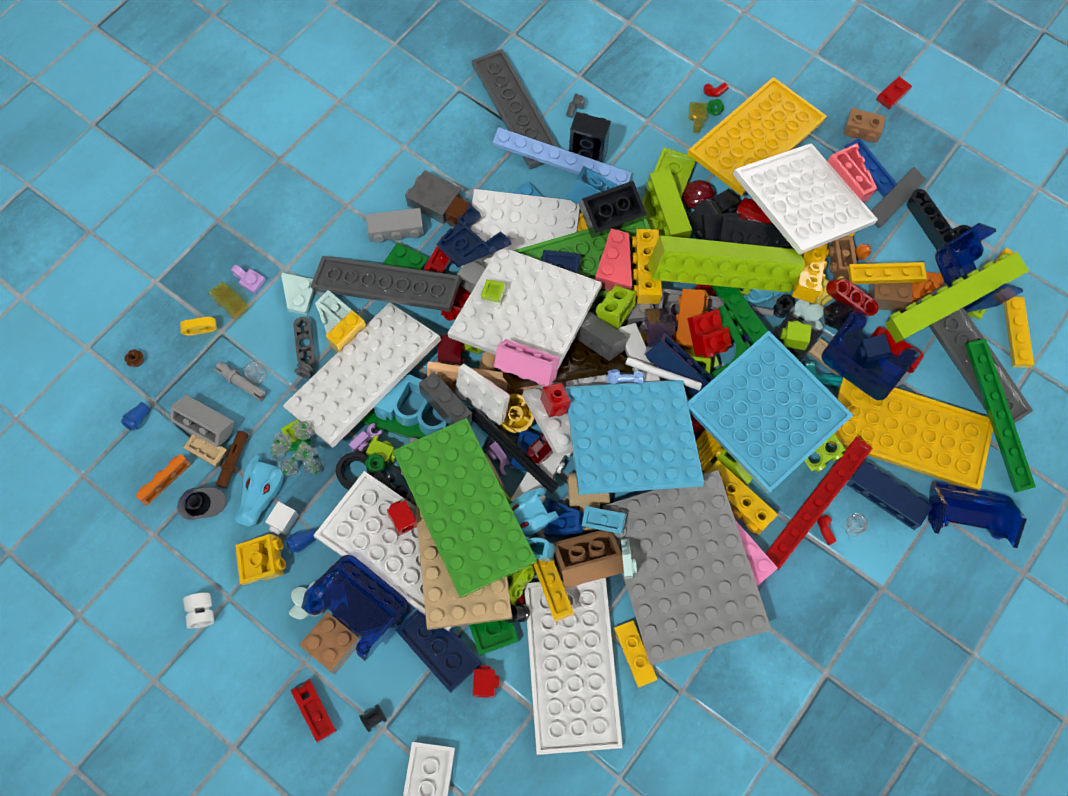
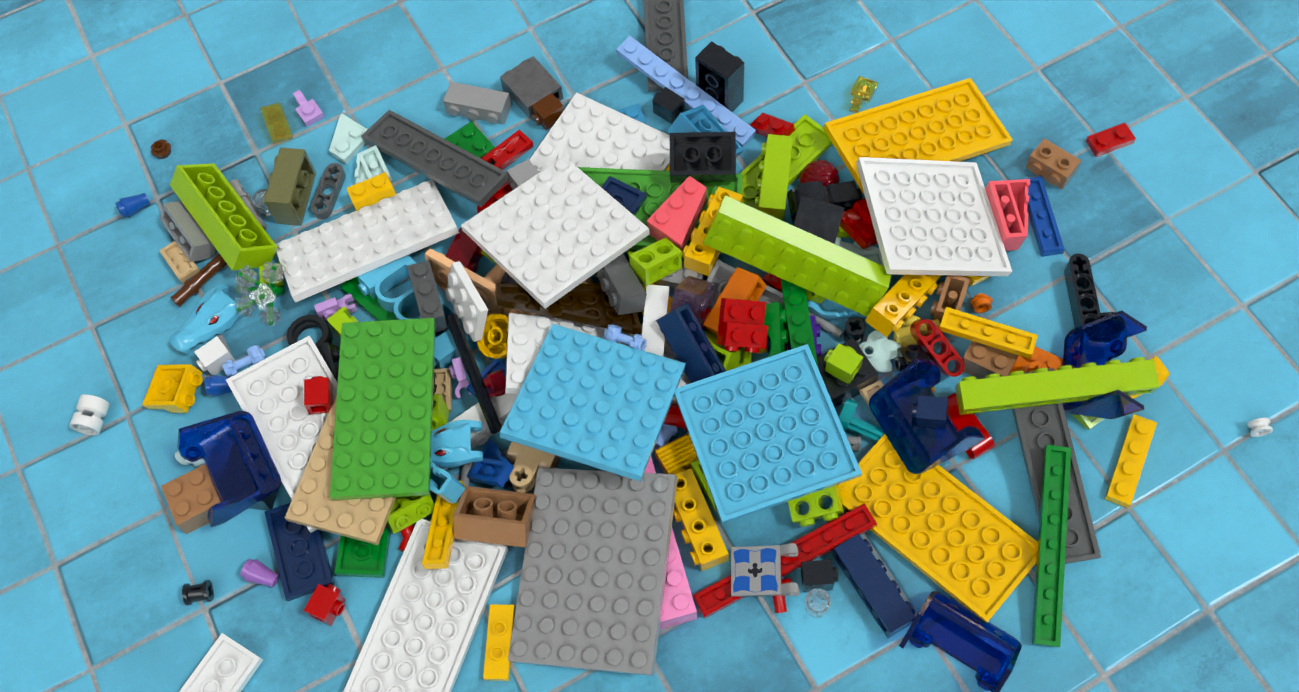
camera: 30 degrees right, 5 degrees down
(163, 479) = (124, 275): orange plate -> none
(198, 326) = (235, 138): yellow beam -> none
(201, 503) = (146, 310): black piece -> none
(228, 397) = (223, 216): none -> lime brick
(273, 351) = (290, 186): none -> olive brick
(303, 370) = (312, 217): dark grey bush -> none
(313, 711) = (145, 561): red plate -> none
(316, 505) = (254, 356): none -> light blue bar
(380, 463) = (329, 327): green plate -> none
(416, 681) = (257, 572): none -> medium lavender cone
(465, 246) = (531, 142): dark blue wing -> none
(493, 291) = (526, 197): lime plate -> none
(519, 613) = (392, 544): black bush -> none
(526, 362) = (519, 280): bright pink brick -> none
(554, 175) = (668, 105): none -> black brick
(555, 400) = (532, 332): red brick -> none
(578, 102) = (734, 38): dark grey plate -> none
(603, 520) = (528, 481): medium azure plate -> none
(628, 563) = (527, 533): light aqua wing -> none
(643, 165) = (768, 124): none -> red plate
(663, 373) = (668, 348): white bar -> none
(715, 92) = (895, 74): red arm -> none
(715, 111) = (881, 90): green plate -> none
(751, 233) = (845, 233): black wing -> none
(805, 519) = (758, 570): none -> light grey flag
(848, 504) = (818, 575): none -> black brick
(897, 196) = (1052, 255): dark grey tile -> none

